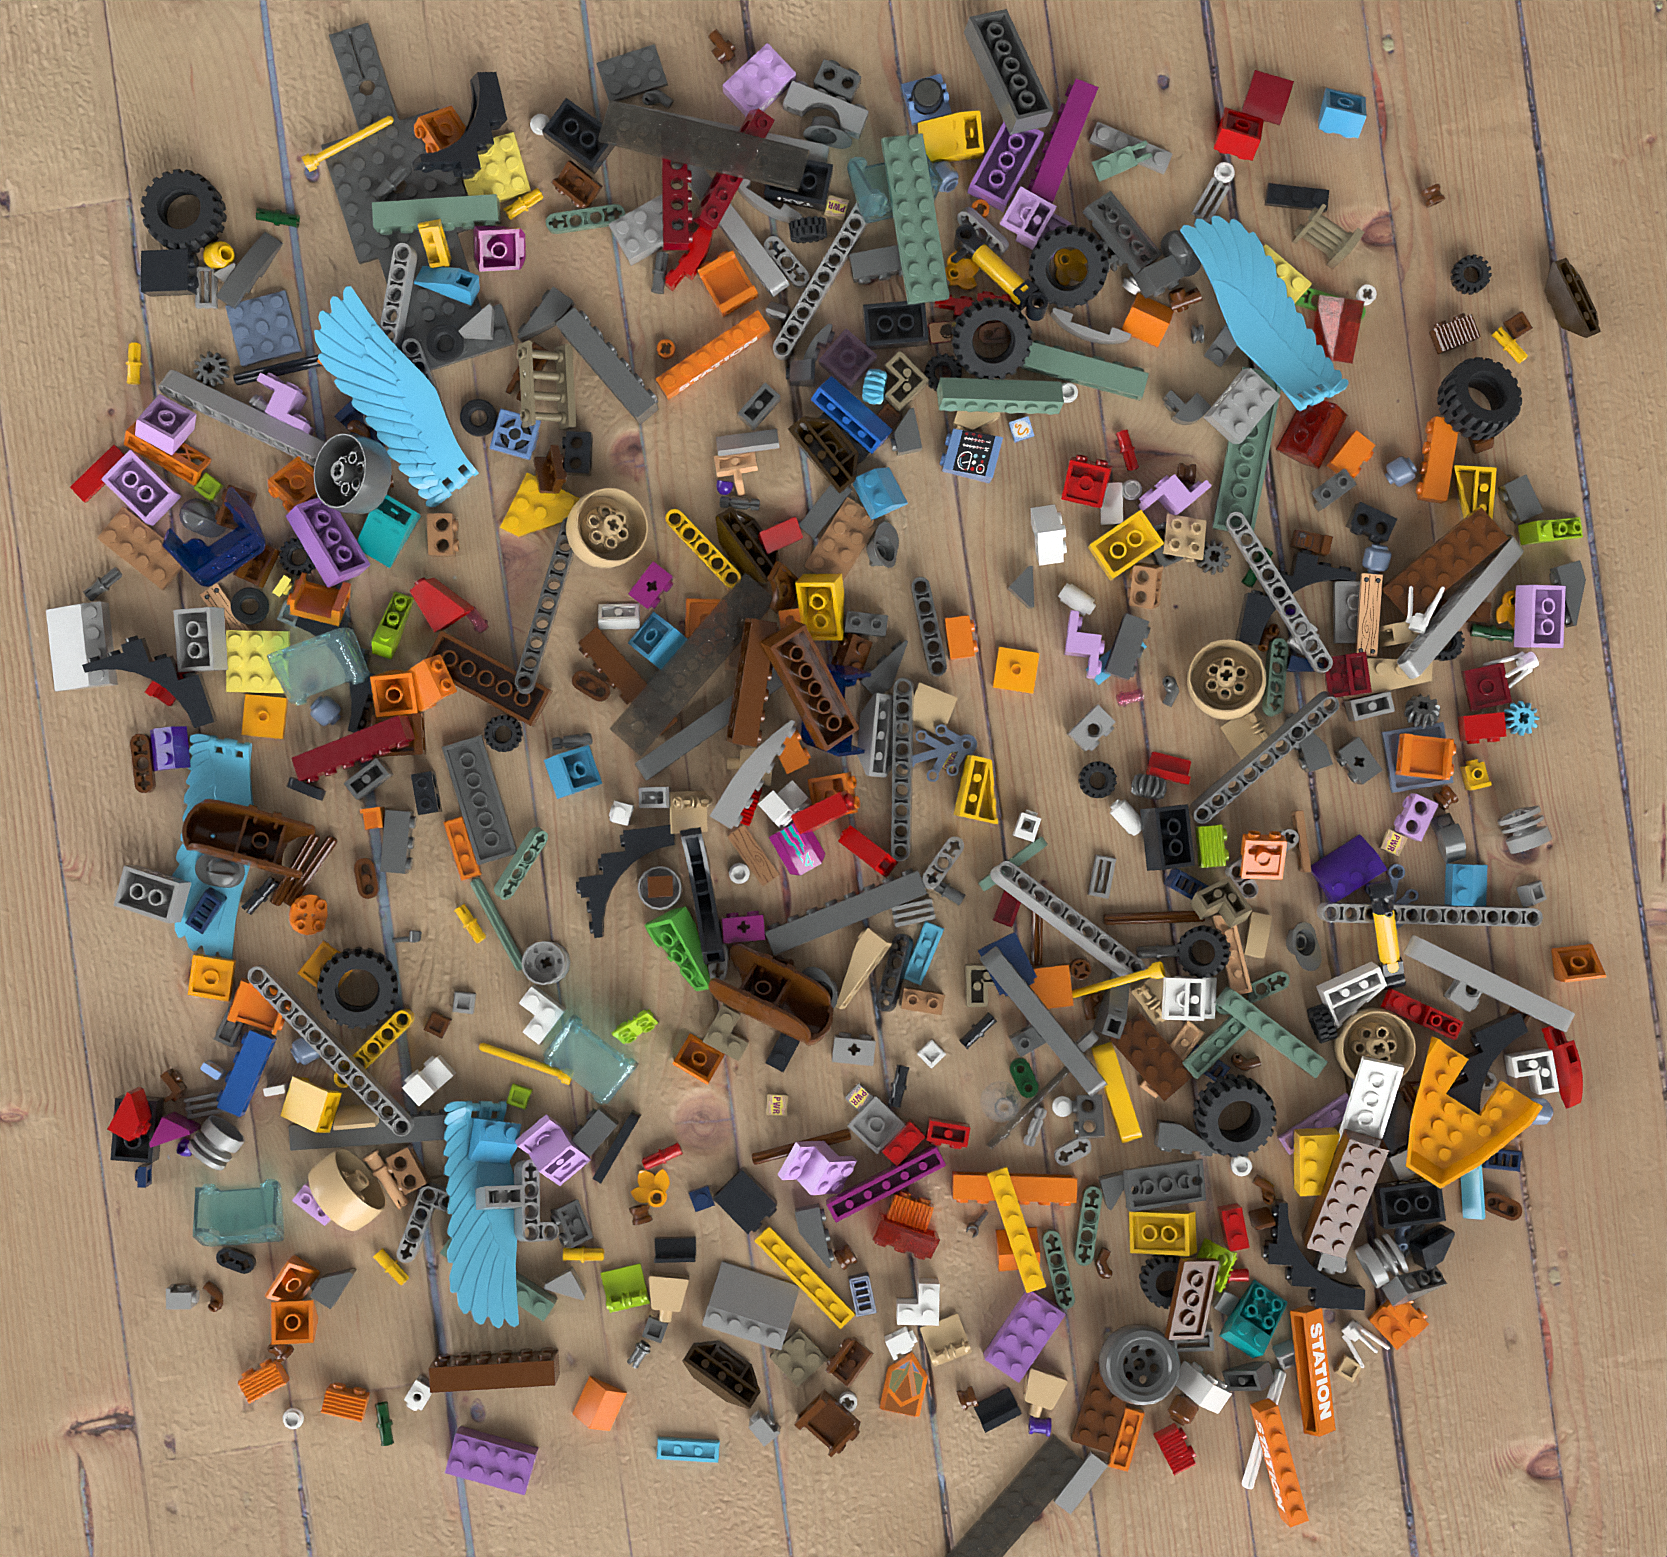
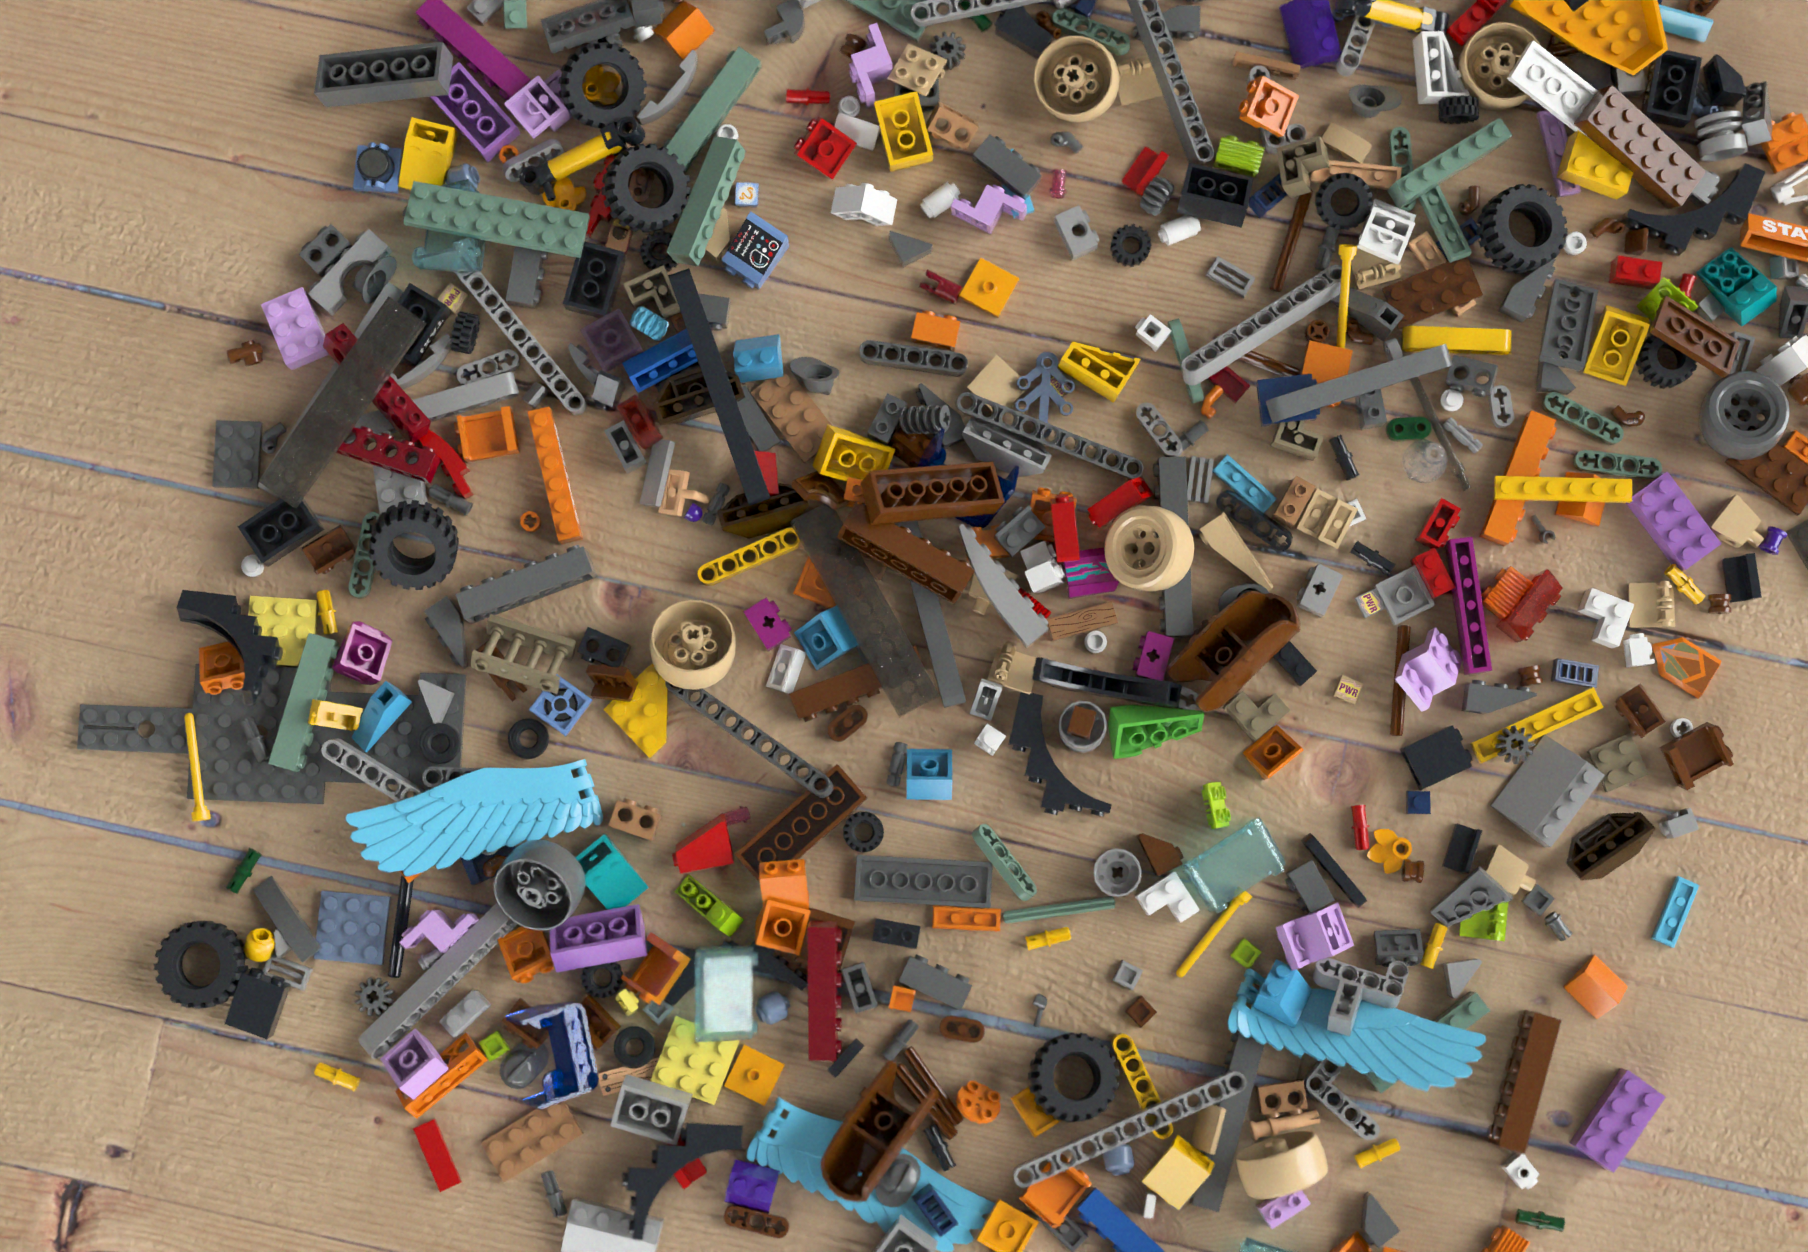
camera: 70 degrees left, 5 degrees down
(141, 487) = (469, 1114): lavender brick -> none
(225, 451) = (465, 1013): none -> light grey brick
(338, 829) = (900, 1040): none -> dark grey axle
(425, 1083) = (1195, 1038): white brick -> none
(576, 994) = (1160, 854): none -> reddish brown slope
(626, 255) = (404, 569): none -> black tyre
(634, 1270) = (1469, 897): none -> dark grey wing
(770, 1262) = (1505, 745): none -> dark grey gear
(785, 410) = (640, 422): none -> clear red brick
(808, 773) = (1018, 531): none -> dark grey bracket
(838, 467) = (719, 386): none -> black beam
(844, 903) = (1163, 565): none -> tan wheel
(876, 656) = (925, 419): none -> dark grey piece
(919, 1034) = (1326, 518): none -> tan slope
(973, 1362) = (1684, 584): none -> yellow pin
(985, 896) = (1209, 400): none -> orange arm
(1000, 633) = (946, 289): none -> dark red hinge

